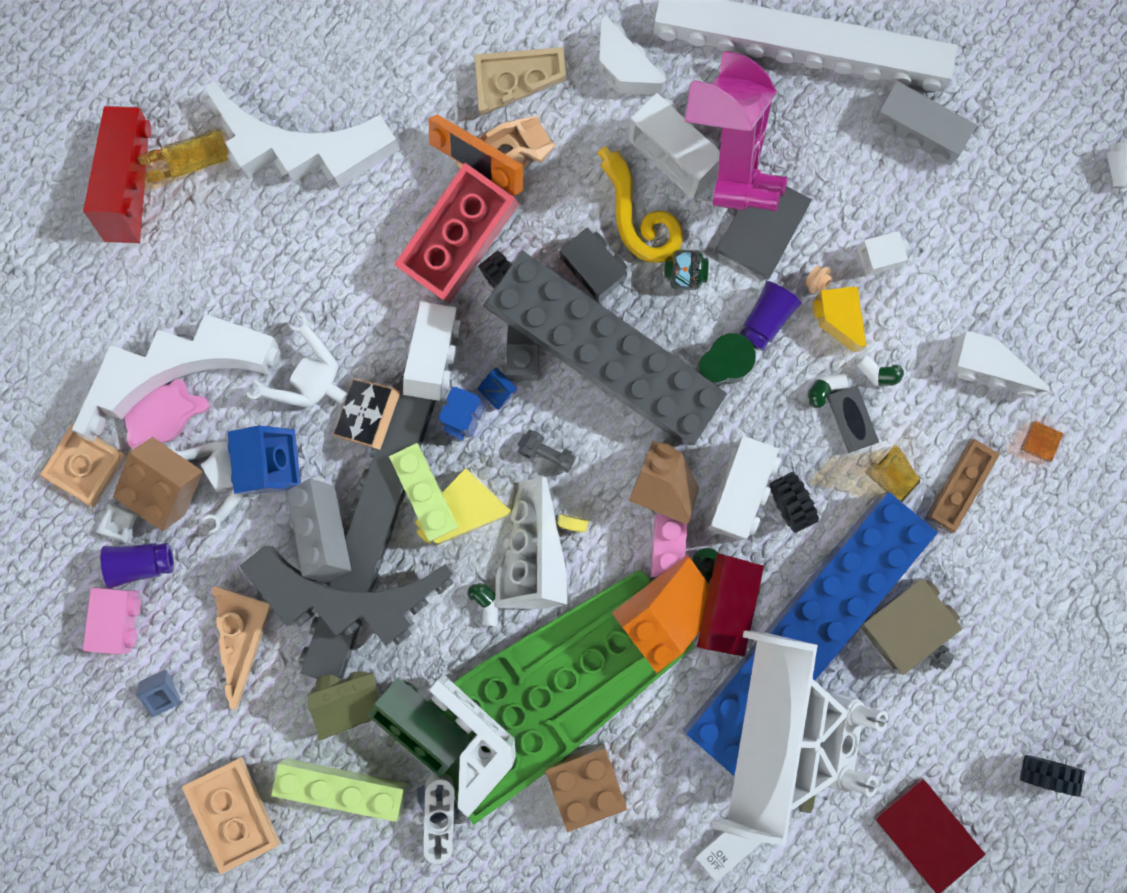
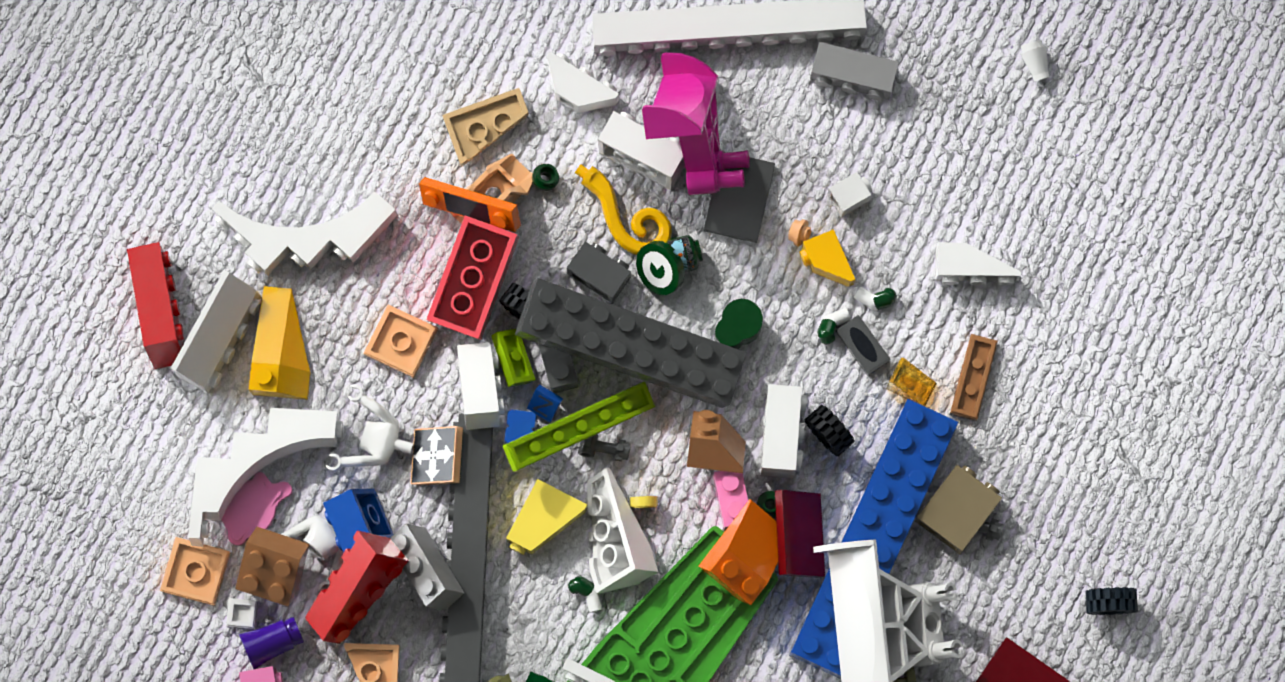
camera: 20 degrees left, 5 degrees down
(171, 218) = (216, 332): none -> white slope
(186, 155) = (209, 272): clear yellow hinge -> none
(234, 257) = (279, 351): none -> yellow wedge
(237, 530) = (355, 586): none -> red wedge
(341, 609) = (467, 626): dark grey arch -> none
(365, 281) = (400, 341): none -> light nougat tile
(423, 492) = (507, 509): yellowish green plate -> none
(476, 331) = (513, 358): none -> lime plate
(522, 424) = (578, 426): none -> lime tile
(570, 144) = (549, 171): none -> dark green plate
(659, 277) = (660, 268): none -> dark green tile
(769, 315) = (764, 275): dark purple plant -> none
(1041, 441) = (1031, 320): clear orange tile -> none

